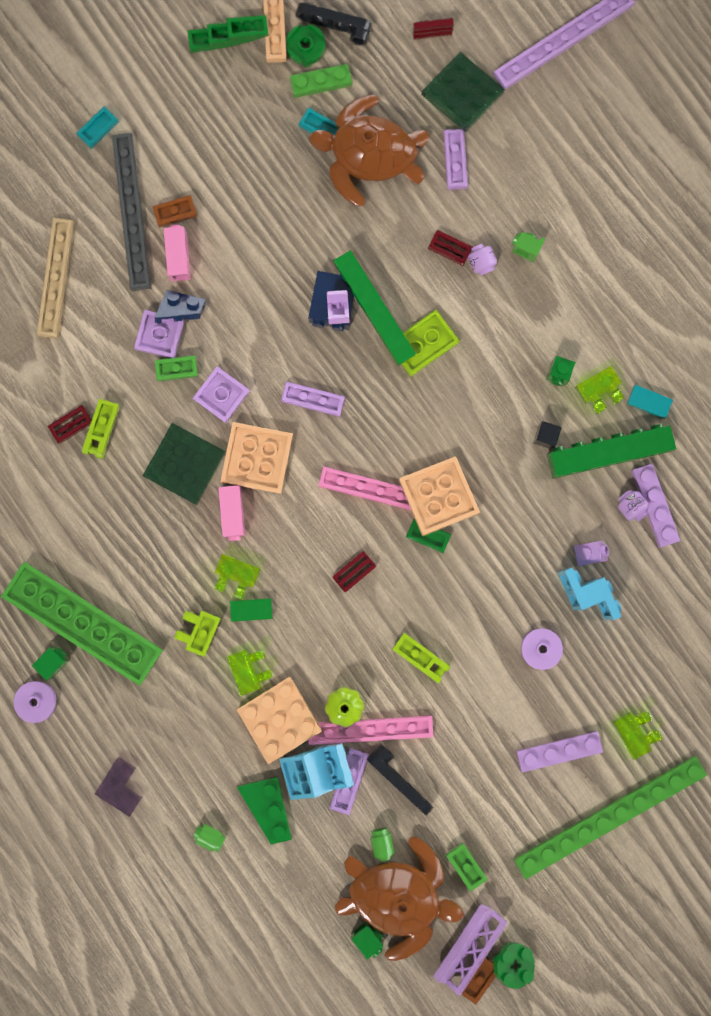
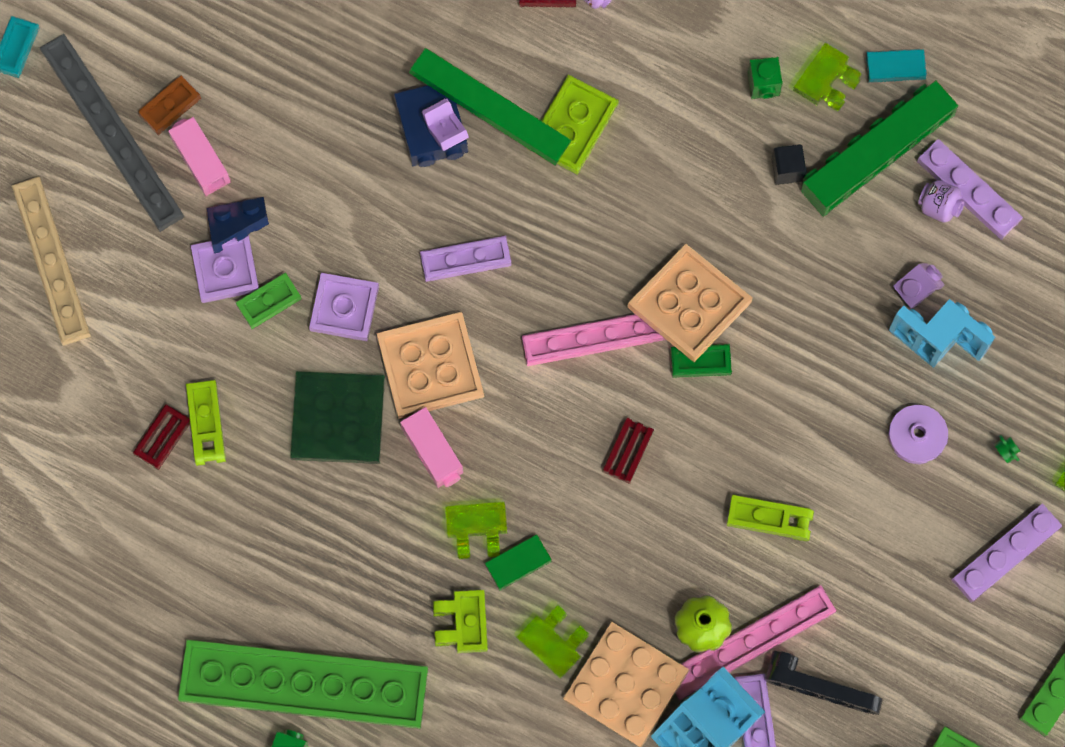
camera: 25 degrees left, 10 degrees down
(593, 687) = (1007, 449): none -> green plate

